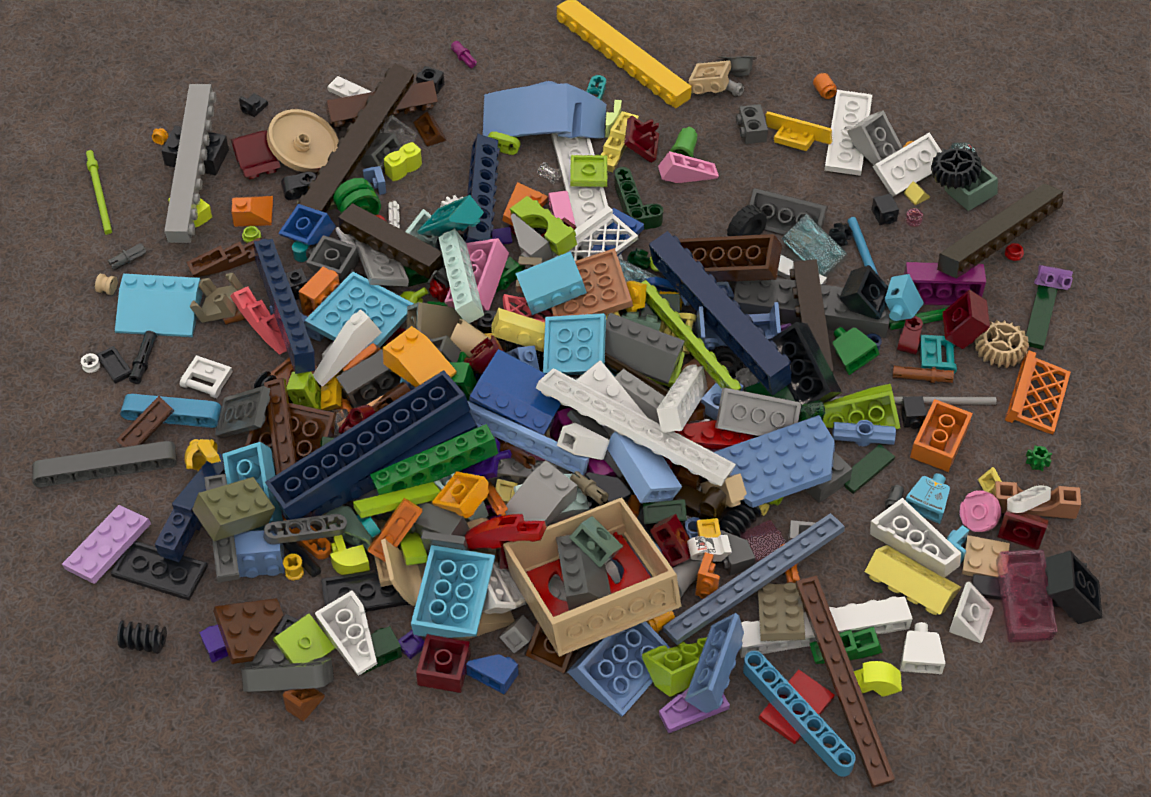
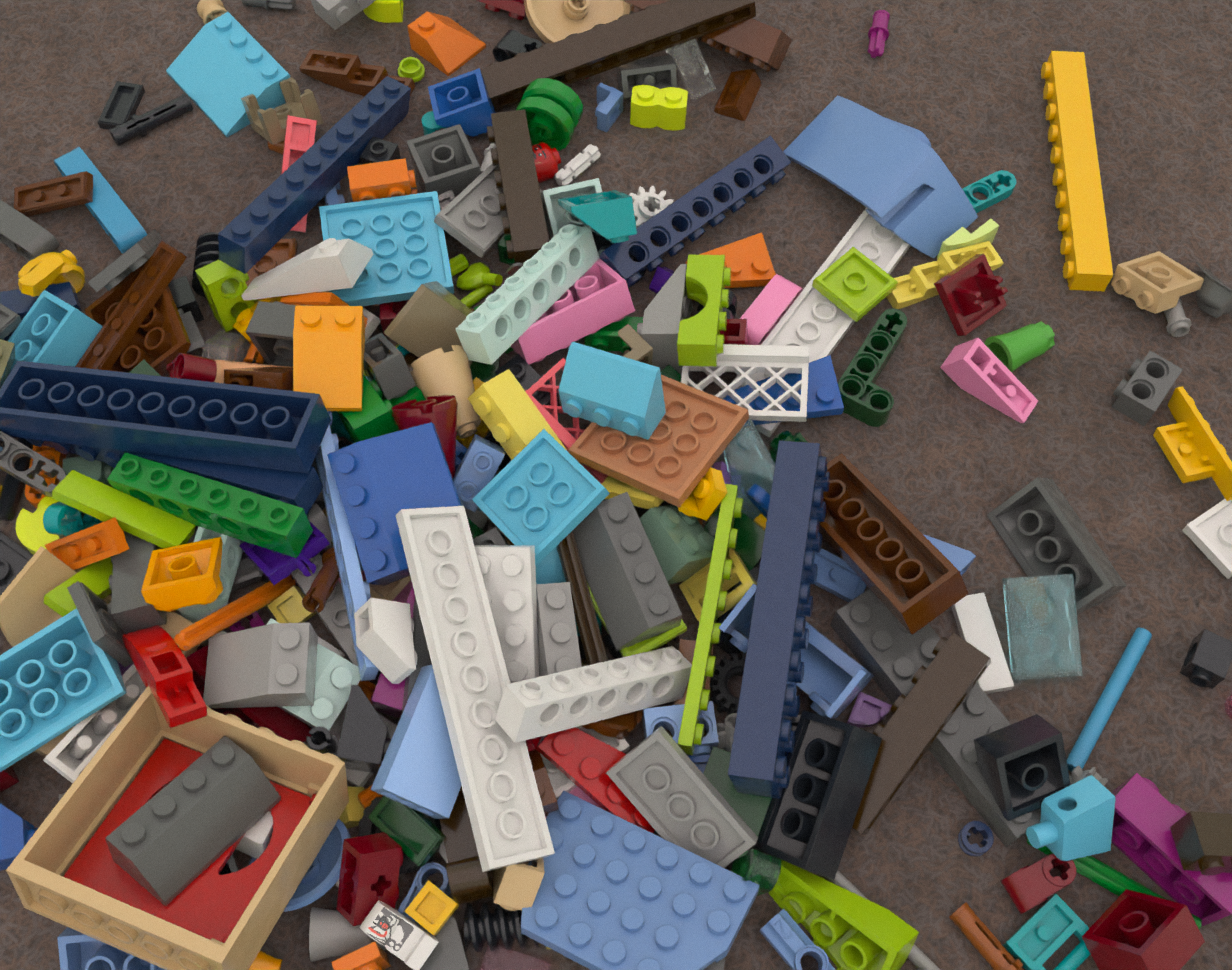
camera: 45 degrees right, 10 degrees up
(88, 358) = (98, 80): white bush -> none
(207, 371) = (187, 187): white plate -> none
(430, 74) = (805, 36): black brick -> none
(504, 142) = (800, 174): lime beam -> none
(549, 173) = (811, 250): clear bush -> none
(589, 488) = (333, 708): dark tan pin -> none
(596, 541) = (237, 809): sand green brick -> none
(747, 222) = (975, 521): black tyre -> none
(841, 233) = (1101, 640): black gear -> none
(854, 348) = (930, 825): green torso -> none

